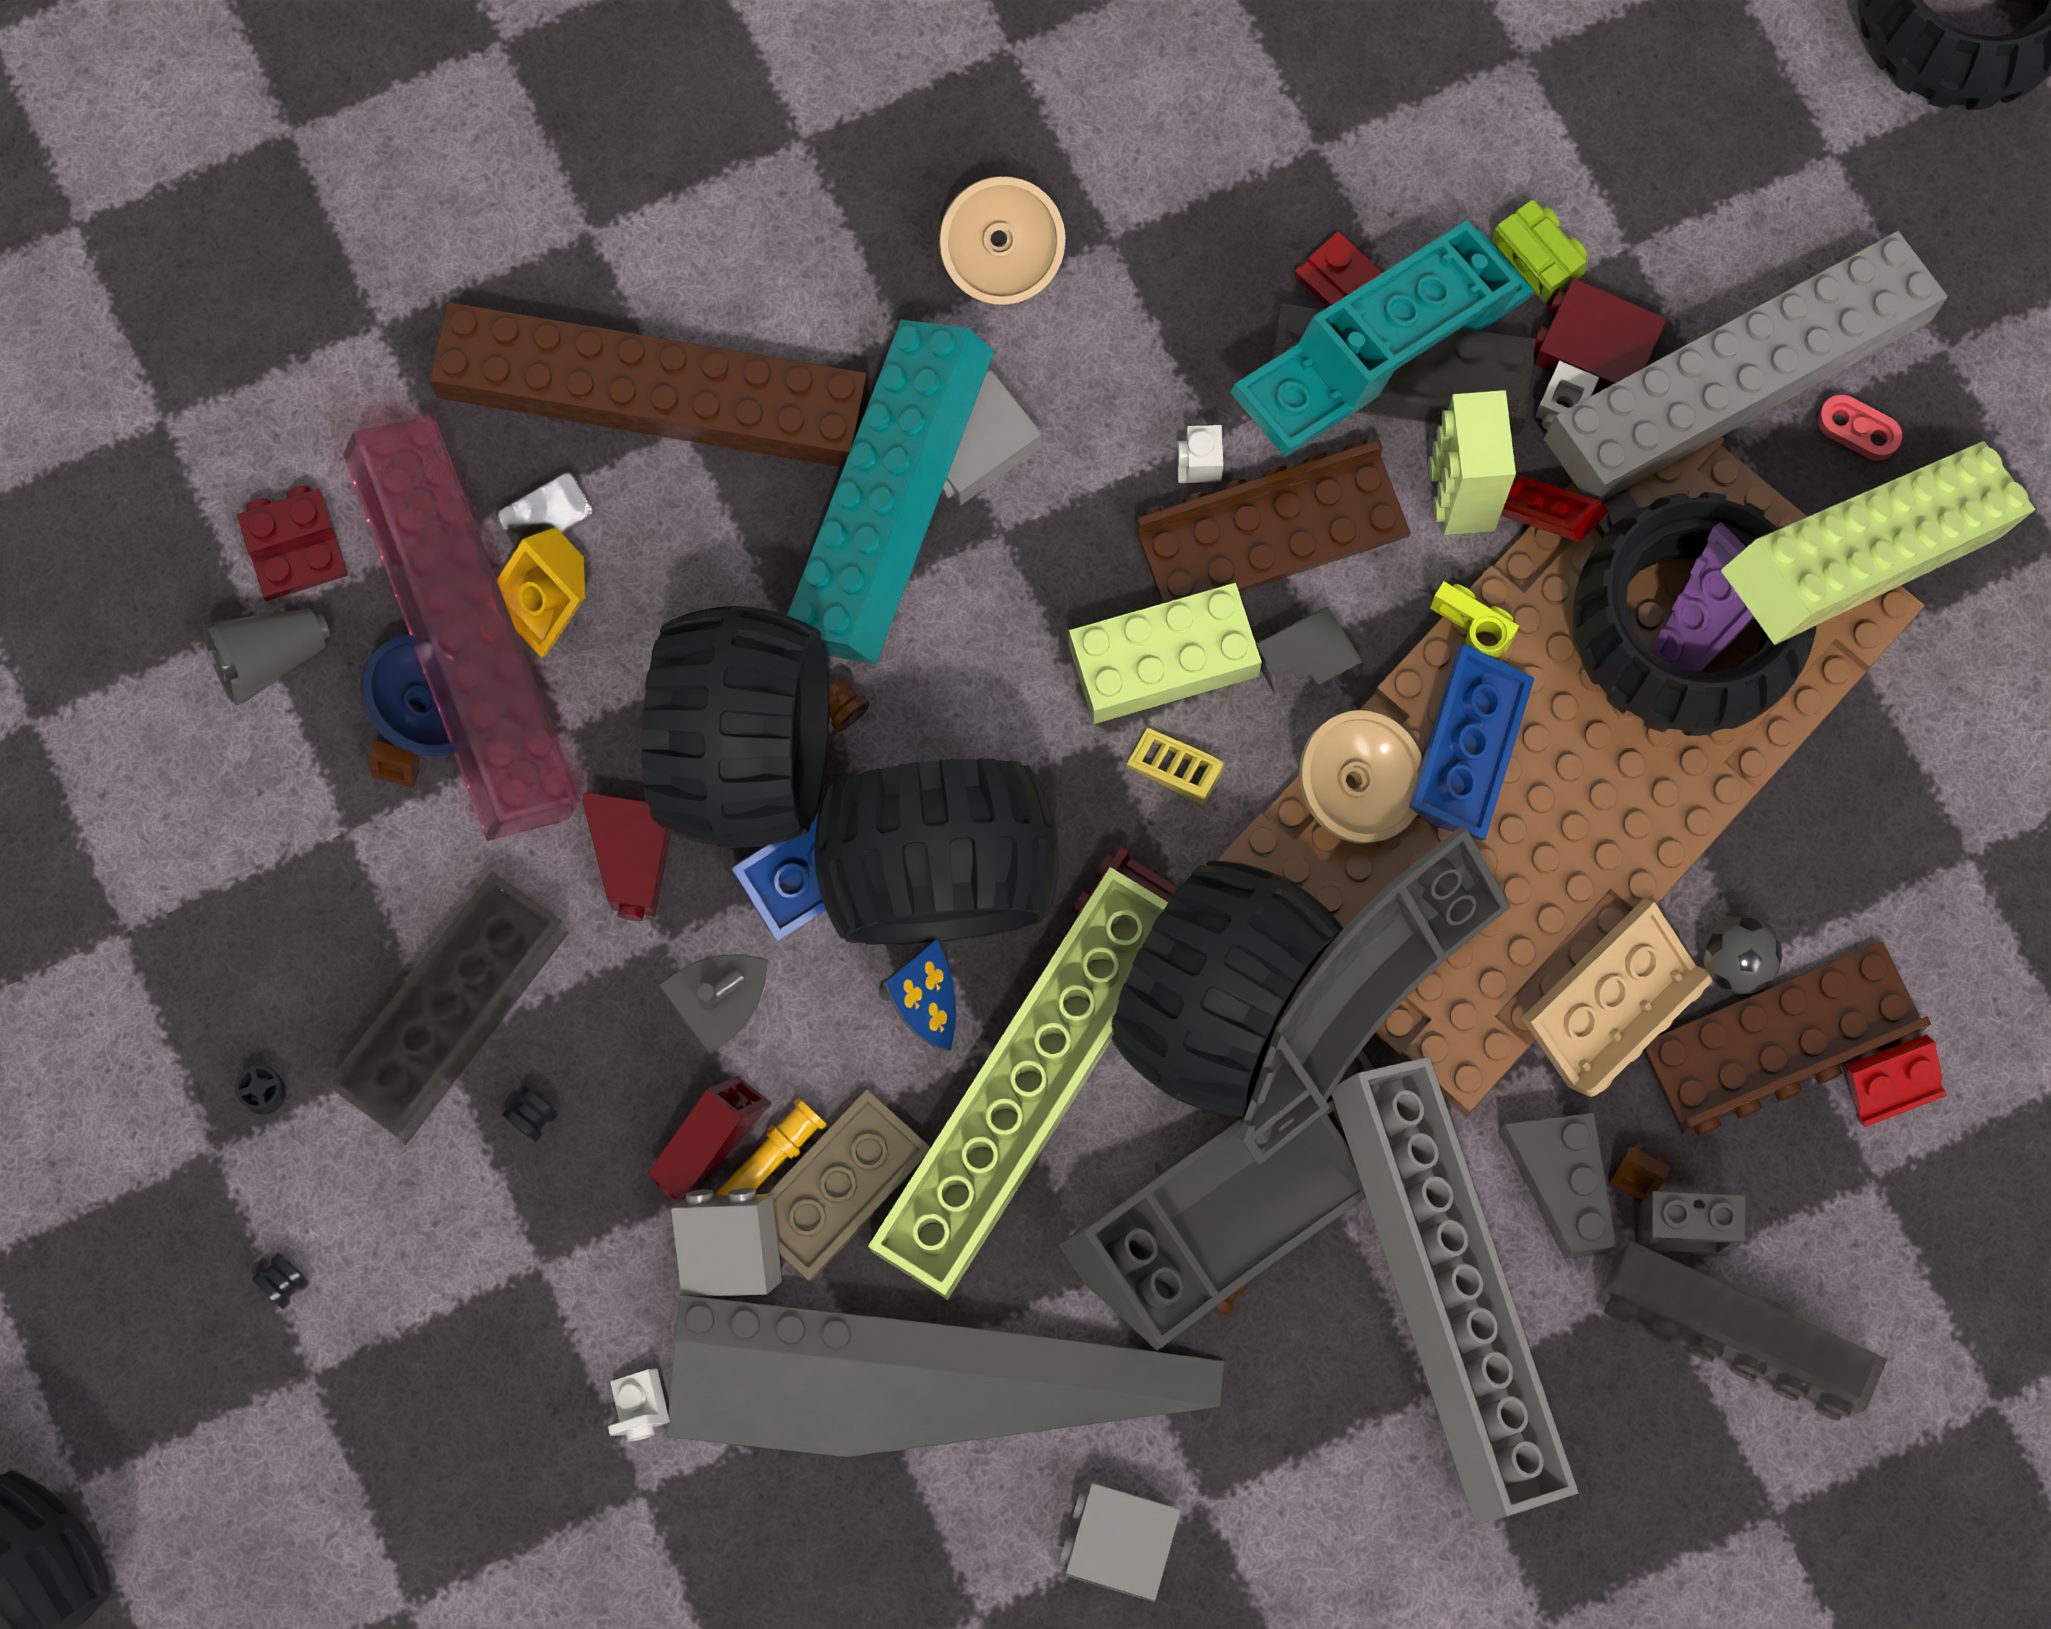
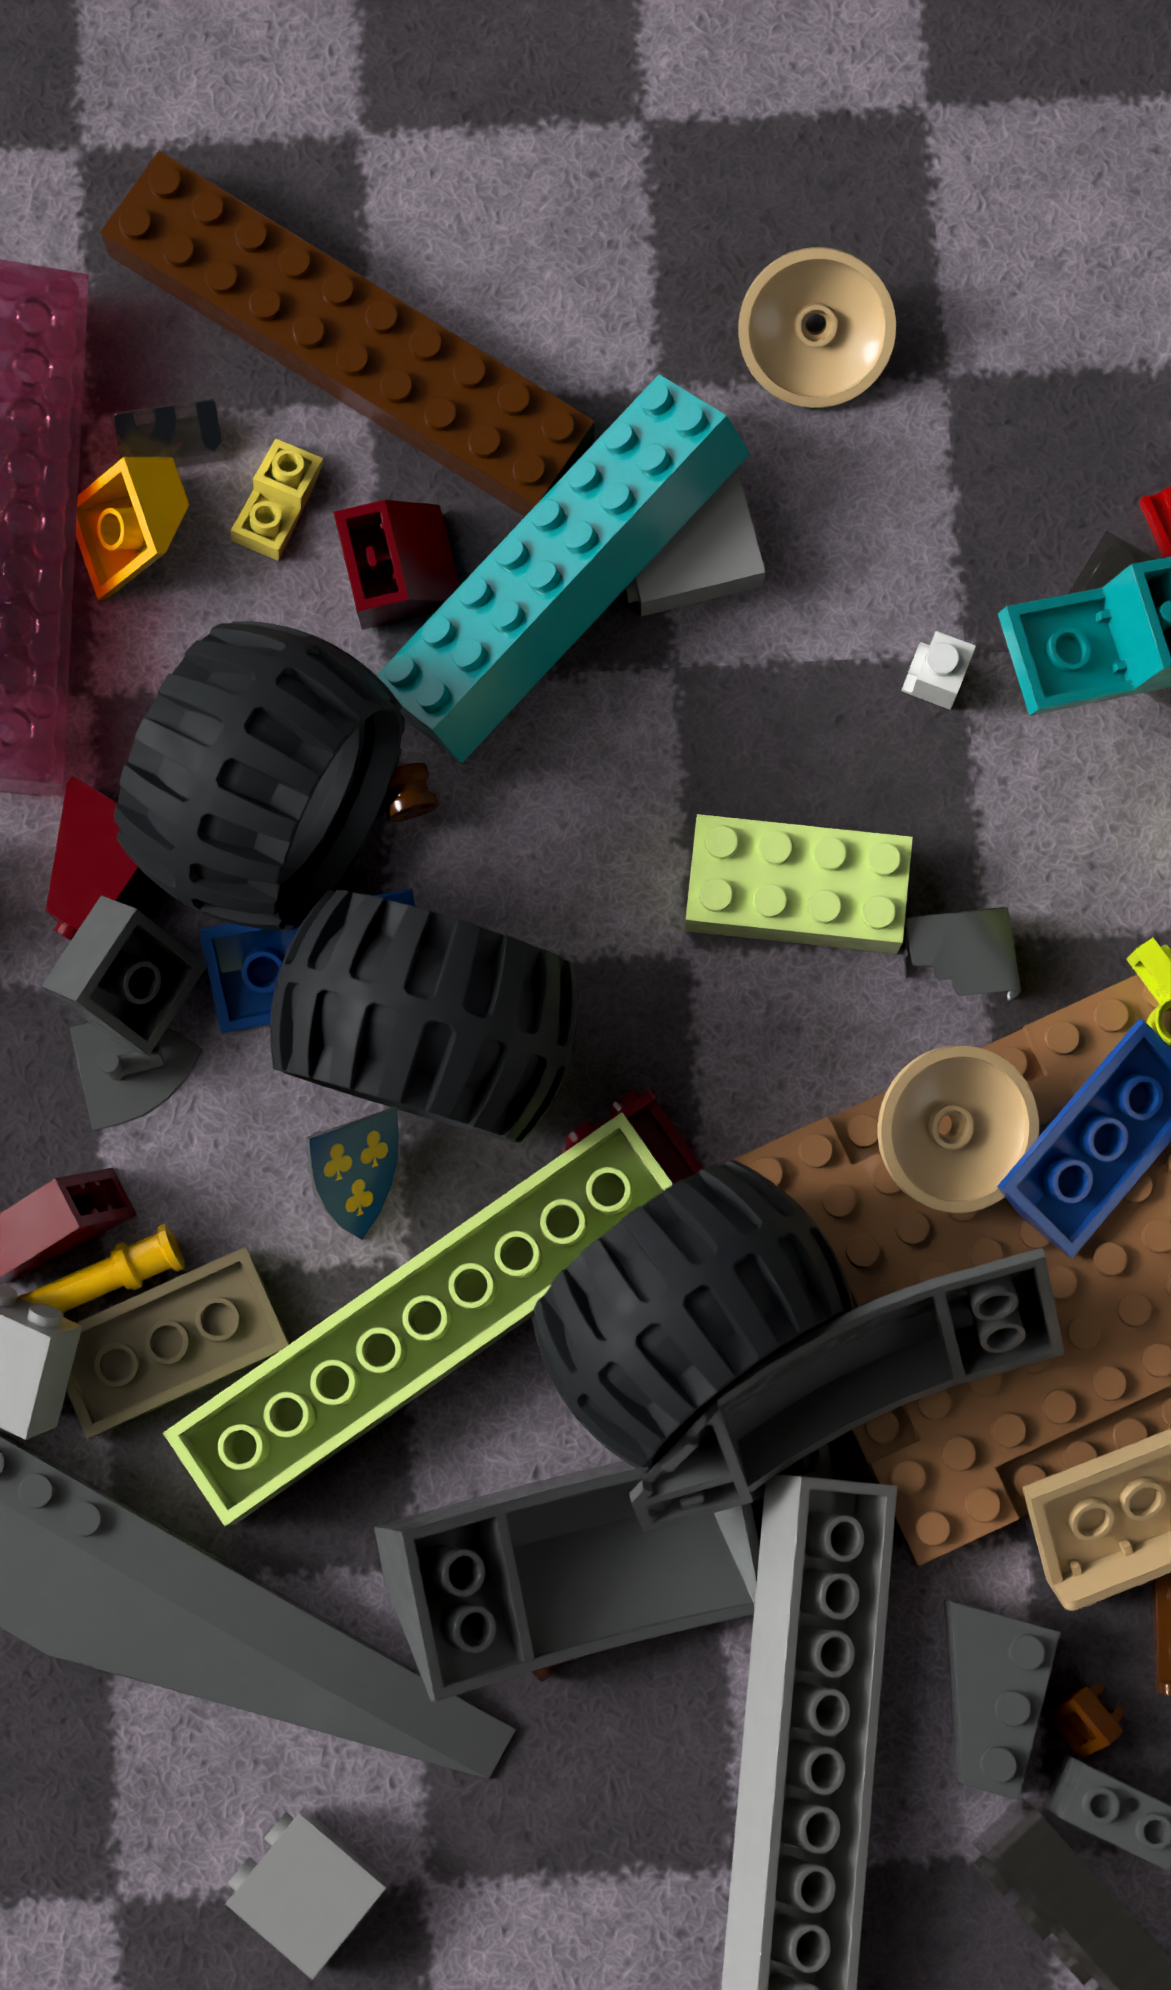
camera: 25 degrees right, 5 degrees up
(646, 528) = (276, 499): none -> light yellow slope
(690, 922) = (124, 975): none -> dark grey brick
(758, 536) = (396, 560): none -> dark red slope
(1196, 793) = (786, 1051): light yellow slope -> none
(1273, 524) = (989, 784): reddish brown bracket -> none

